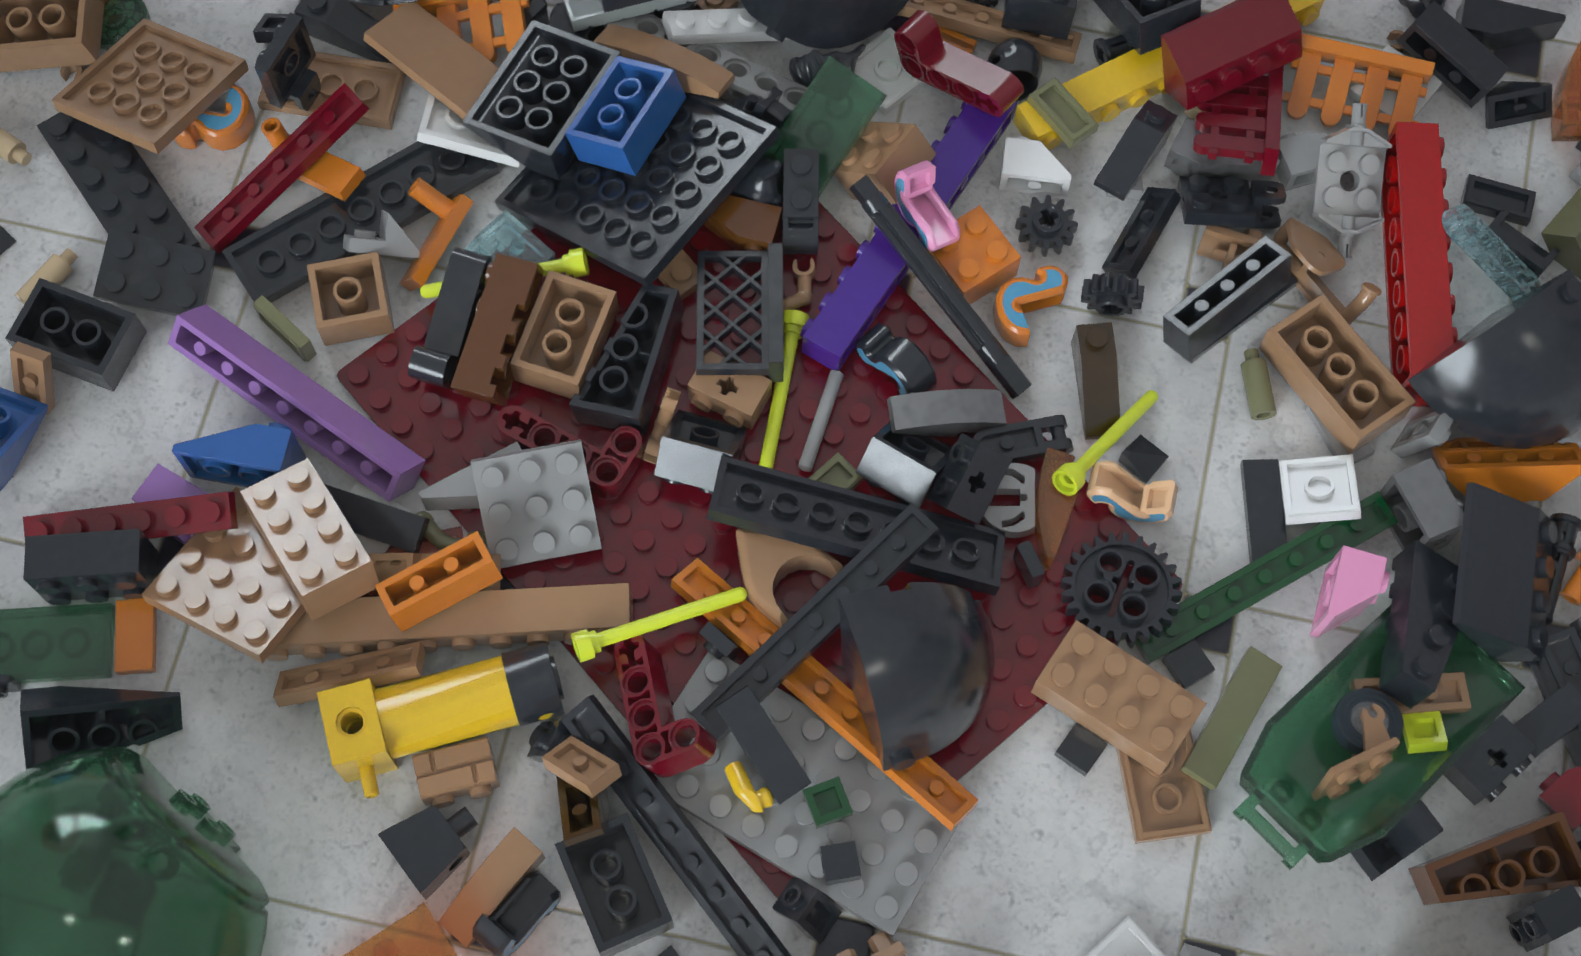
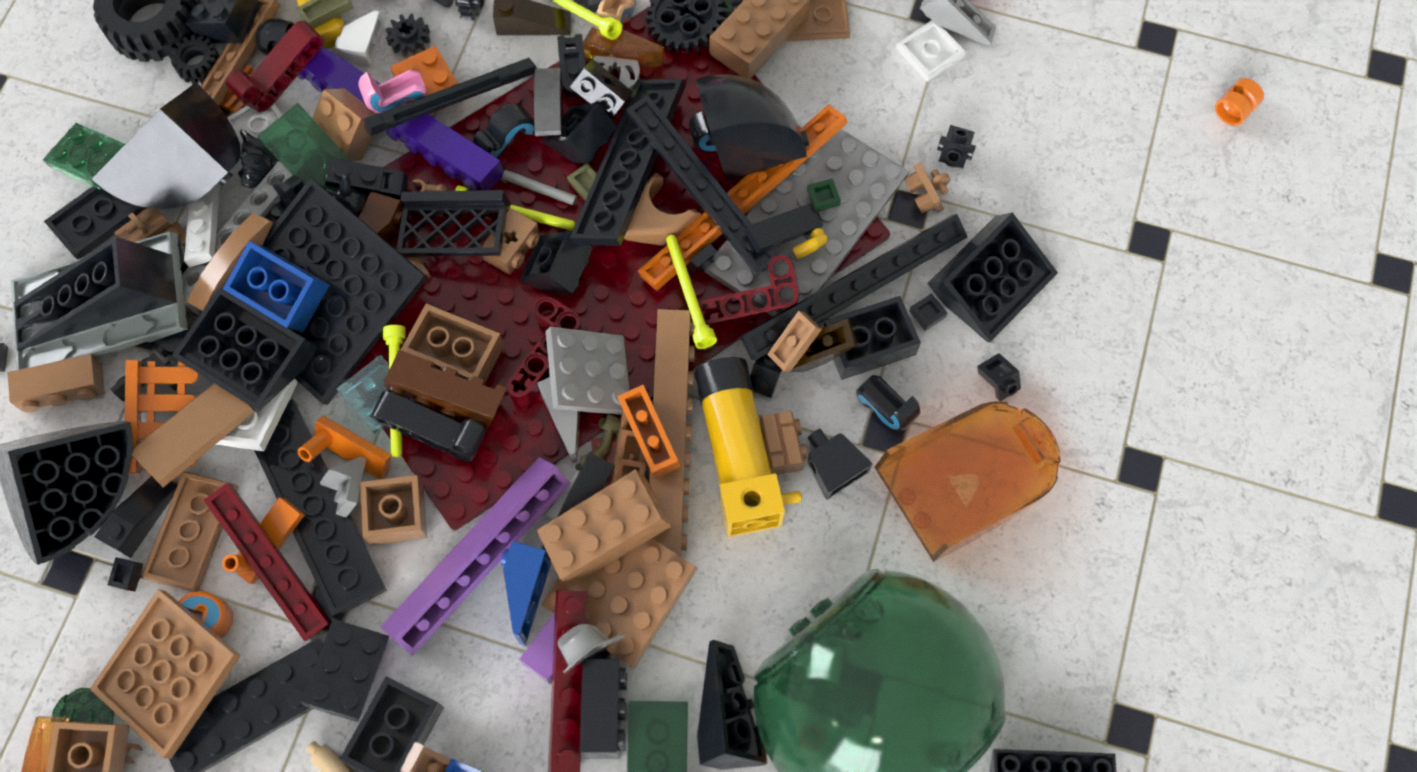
camera: 85 degrees left, 0 degrees up
(135, 637) = (656, 682): orange tile -> none
(157, 526) = (583, 643): none -> light grey piece
(284, 329) = (409, 566): olive tile -> none
(285, 65) = (182, 548): black plate -> none
(381, 666) = (706, 512): medium nougat plate -> none
(491, 884) = (864, 418): medium nougat slope -> none
(631, 370) = (483, 301): black wedge -> none
(661, 423) = (529, 290): medium nougat arm -> none
(807, 909) = (887, 223): black bracket -> none
(840, 863) = (864, 192): black piece -> none
(1024, 296) = (463, 62): orange animal -> none
(1029, 564) = (663, 67): black tile -> none
(1080, 749) = (787, 58): black tile -> none

